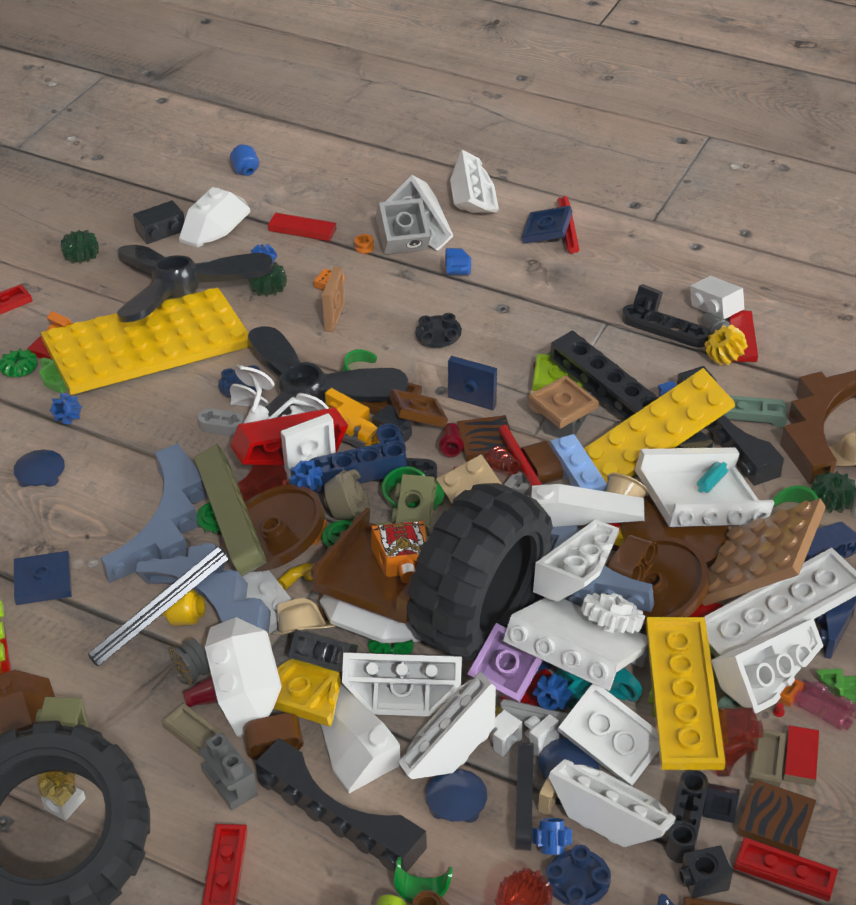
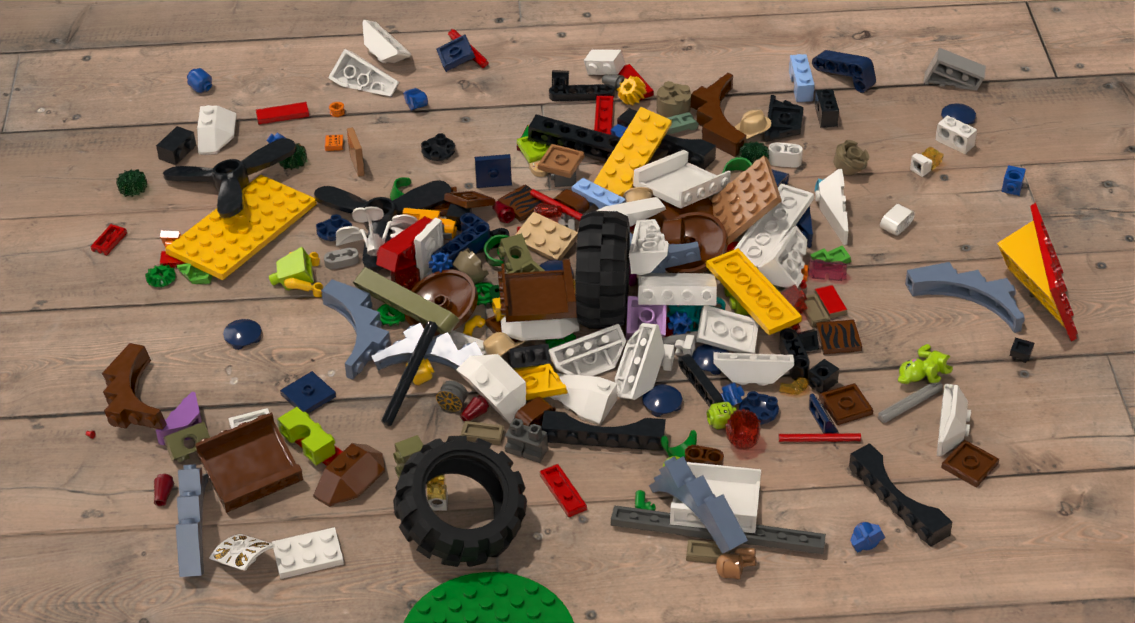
camera: 30 degrees left, 0 degrees up
(66, 408) = (233, 286): blue gear -> none
(153, 414) = (296, 272): none -> lime torso
(398, 547) = (542, 278): torso -> none
(403, 226) = (361, 87): light grey brick -> none
(512, 857) = (719, 414): none -> lime head
(547, 798) = (714, 375): tan tile -> none
(613, 613) = (685, 266): white gear -> none
(655, 869) = (795, 388): none -> clear yellow arm
(671, 364) = (604, 114): none -> red tile
(712, 477) = (682, 172): teal axle -> none
(772, 376) = (673, 99): none -> dark tan brick
(786, 869) = (860, 359): red tile -> none

